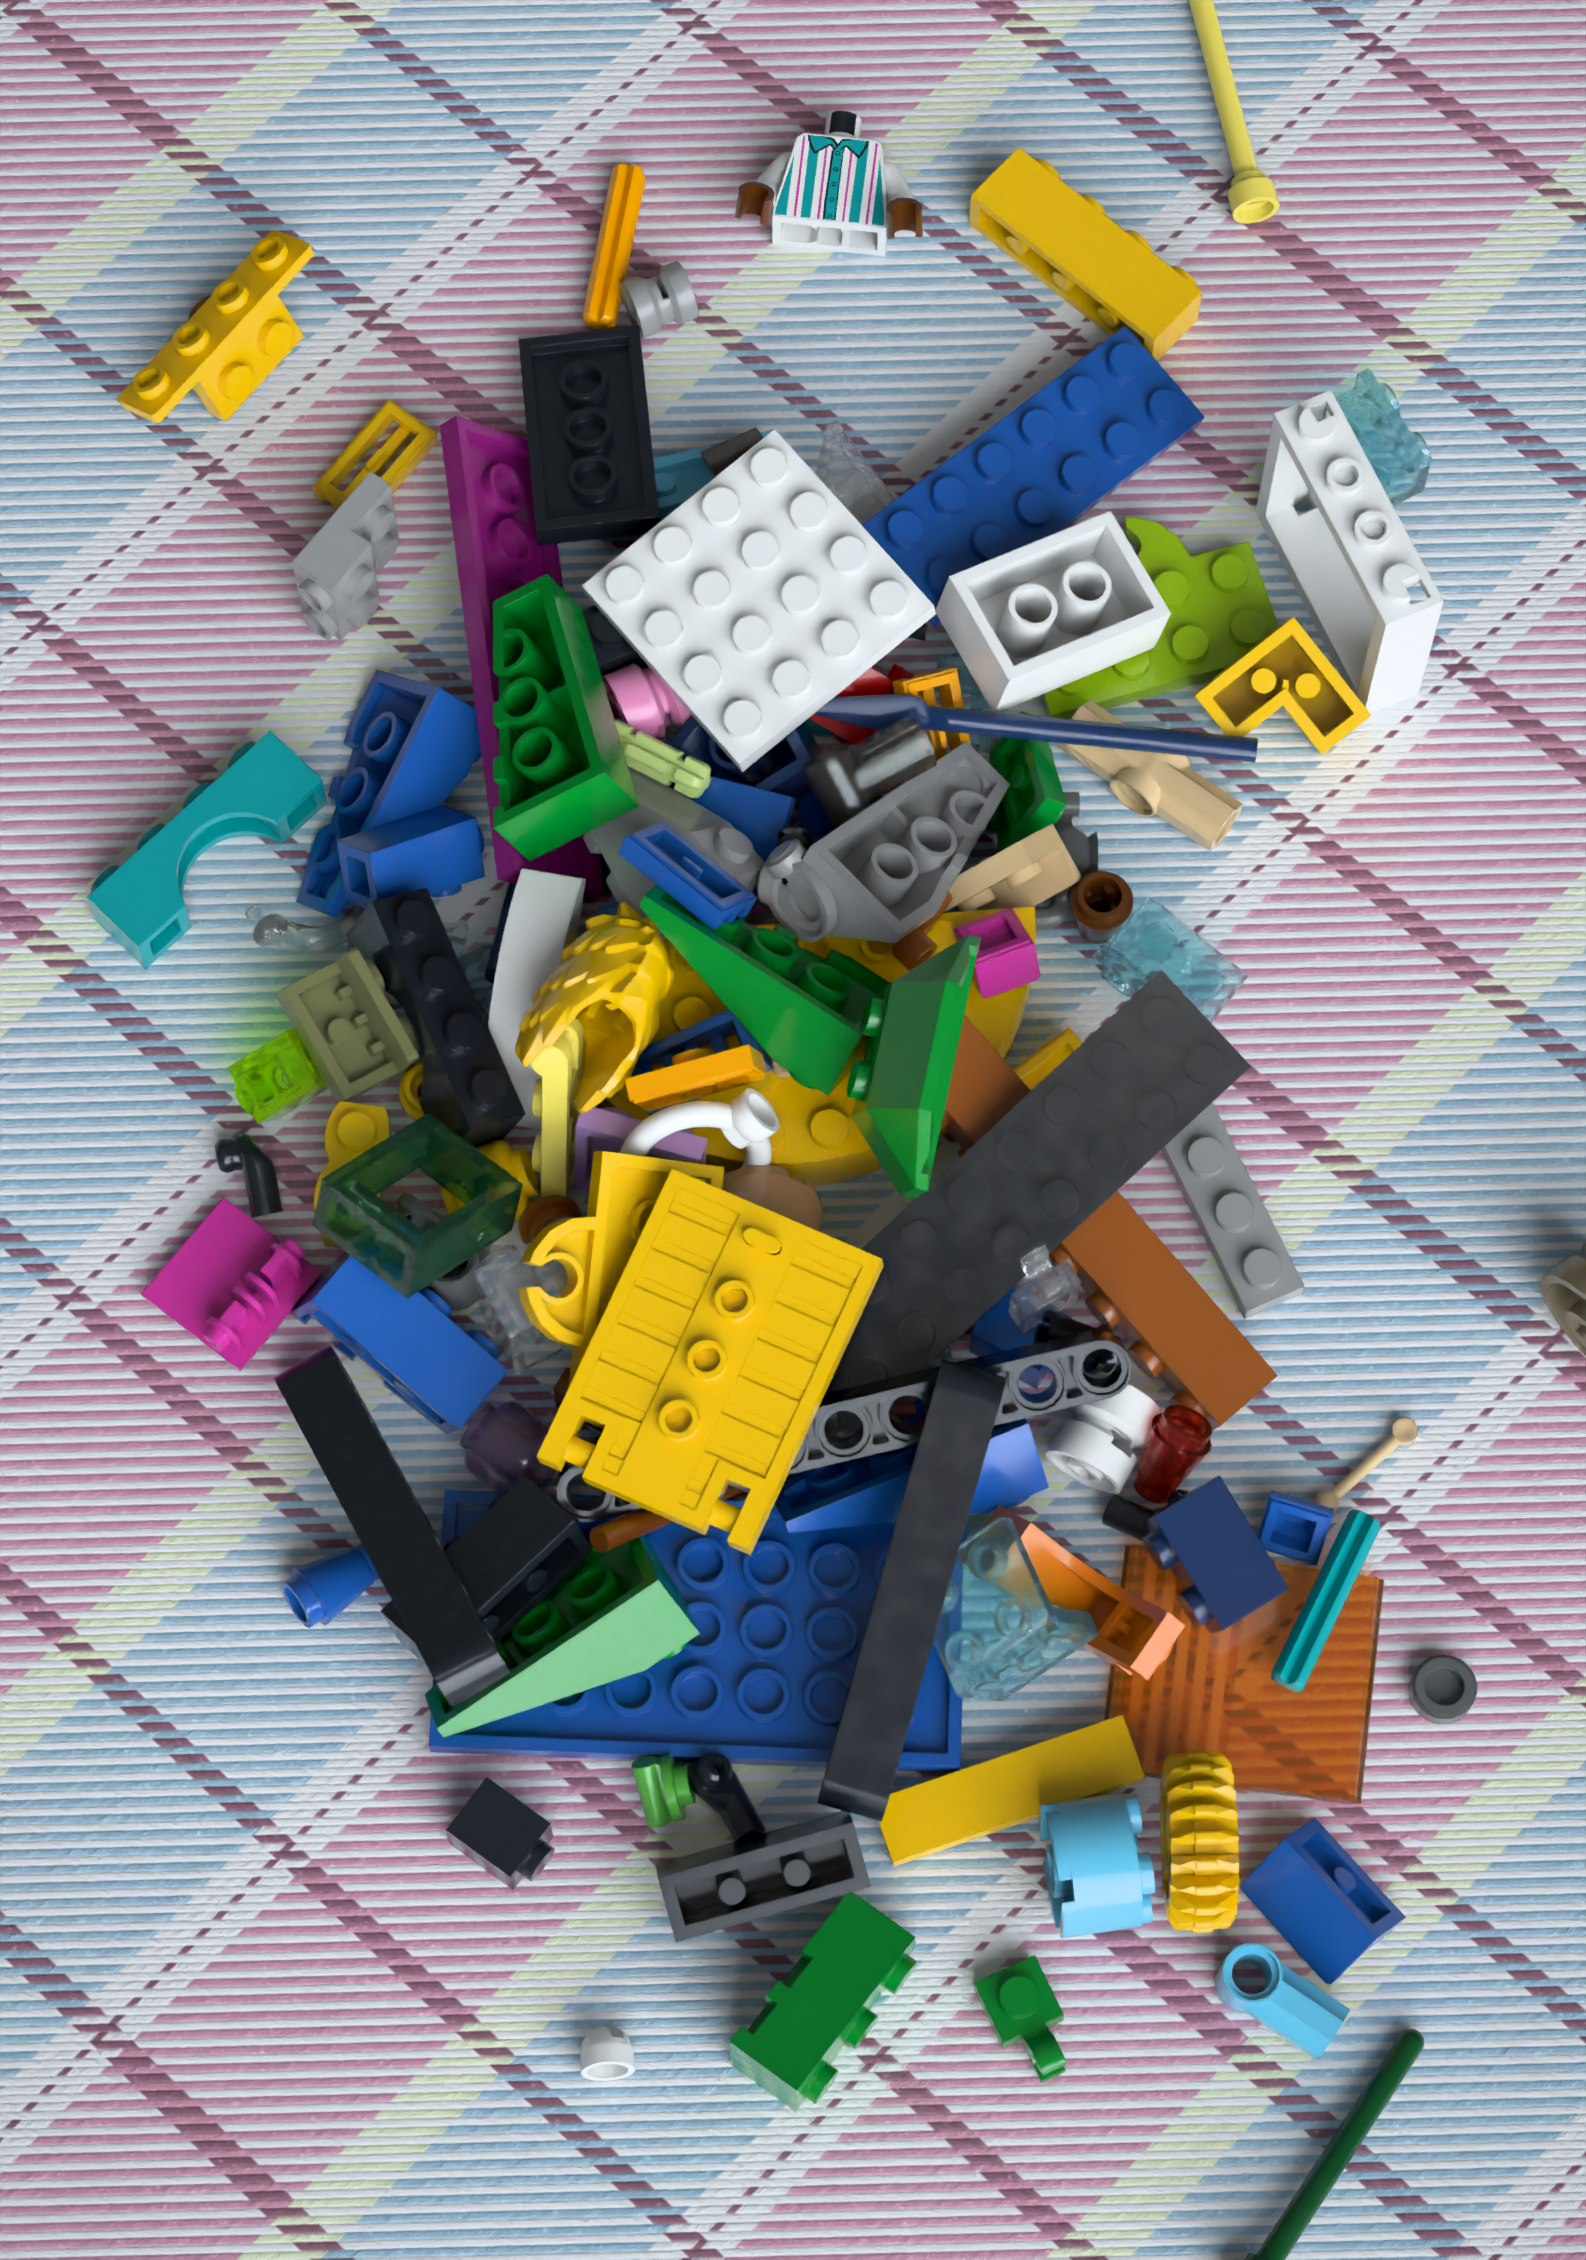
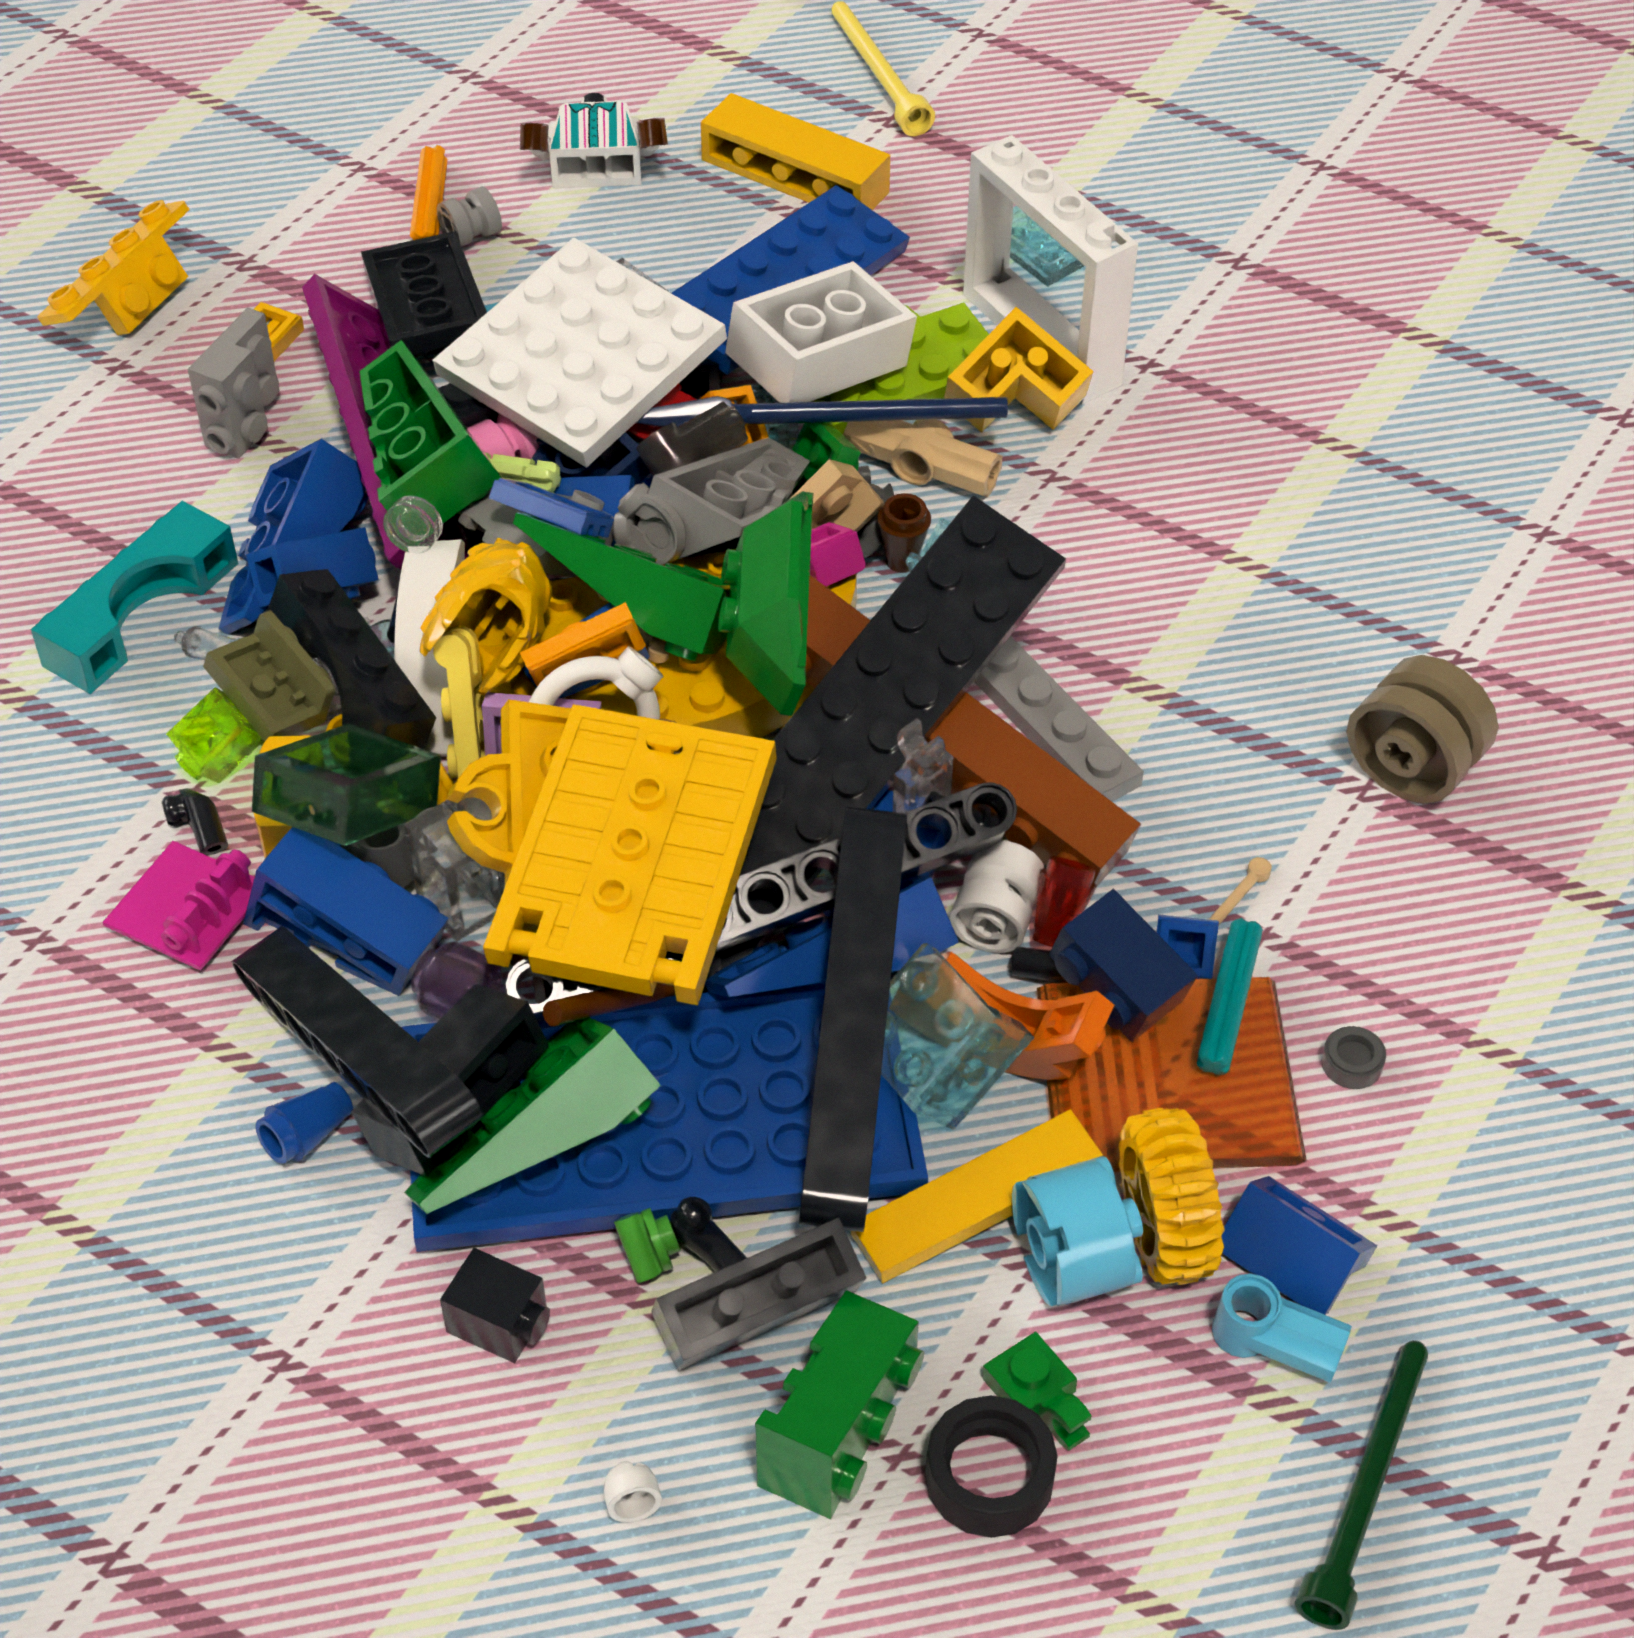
camera: 10 degrees left, 20 degrees down
(529, 859) = (413, 524): none -> clear tile
(959, 2041) = (998, 1418): none -> black tyre

